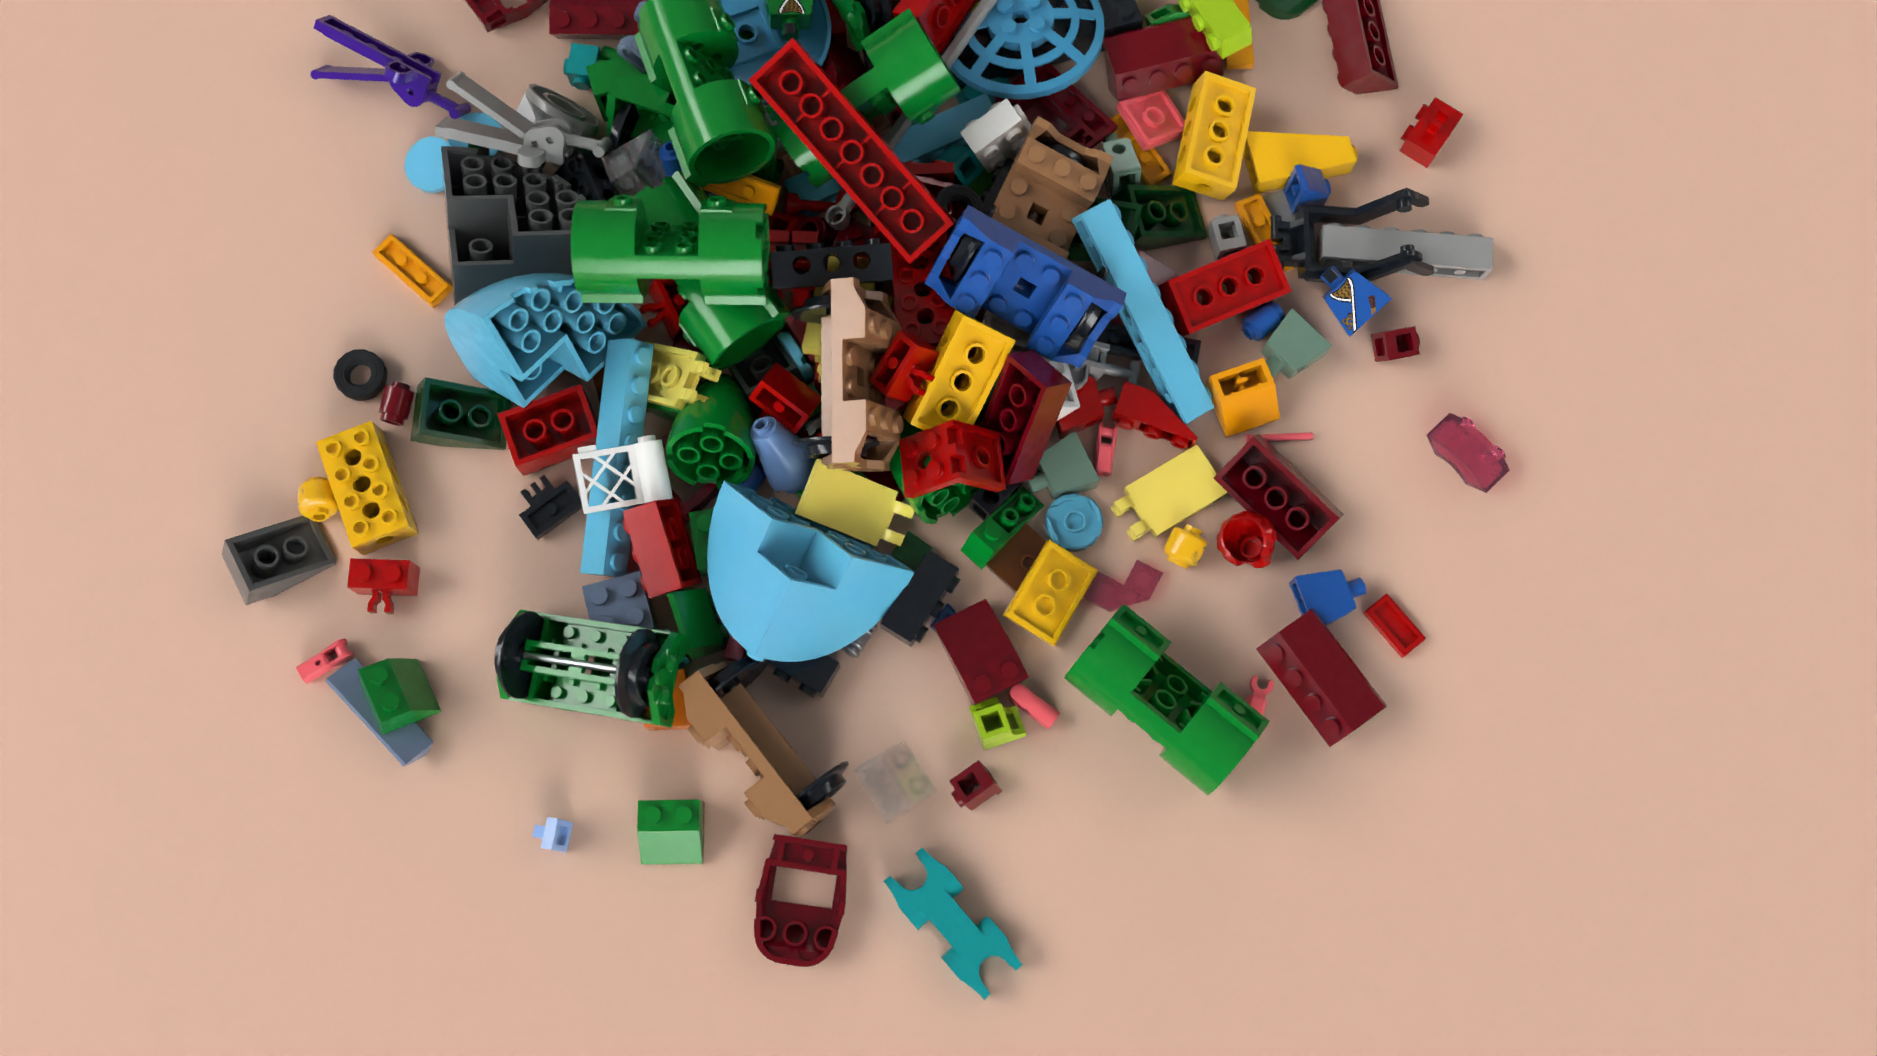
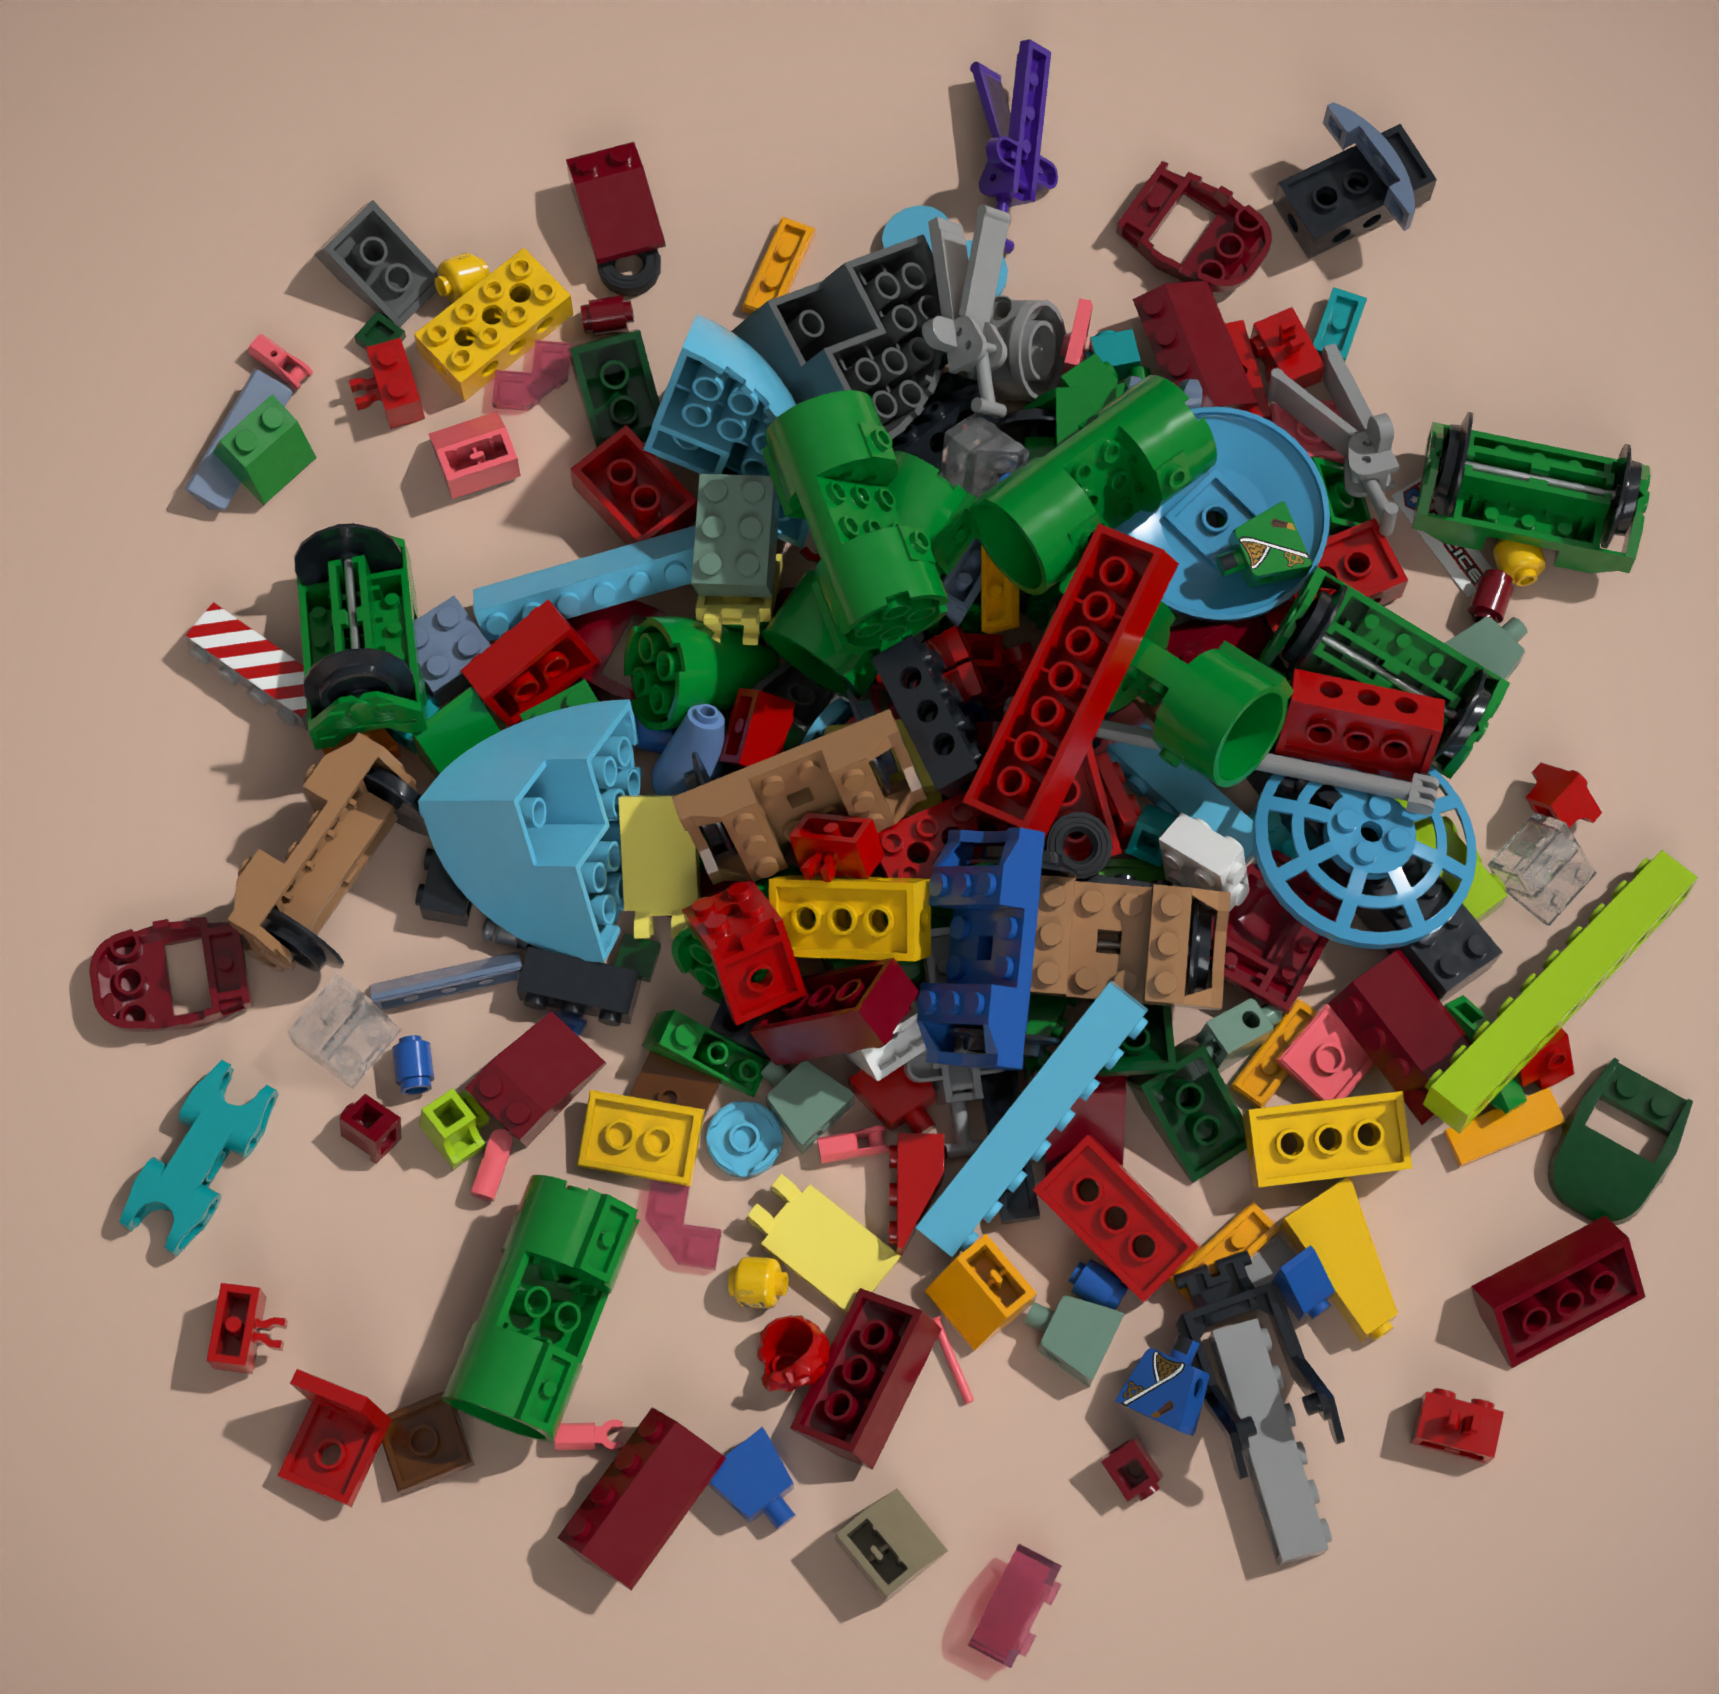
camera: 70 degrees right, 5 degrees down
(307, 364) = (615, 202): none -> dark red slope
(335, 578) = (378, 330): none -> dark green tile
(429, 484) = (525, 389): none -> clear pink tile
(467, 536) = (475, 454): none -> coral slope
(549, 506) = (544, 527): black hinge -> none
(555, 834) = (161, 678): light blue tile -> none
(568, 83) = (1074, 344): none -> coral plate
(572, 757) = (251, 661): none -> brick
(632, 353) = (735, 536): none -> sand green brick
(647, 470) = (612, 611): white piece -> none
(671, 831) = (206, 803): green slope -> none
(878, 693) = (446, 981): none -> sand blue slope
(937, 739) = (413, 1065): none -> blue brick
(1099, 932) = (238, 1328): none -> red brick
(1192, 878) = (338, 1419): none -> red bracket
(1224, 822) = (425, 1443): none -> reddish brown plate
(1229, 227) = (1202, 1188): light grey brick -> none
(1394, 625) = (751, 1583): red tile -> none
(1401, 520) = (890, 1544): none -> dark tan slope

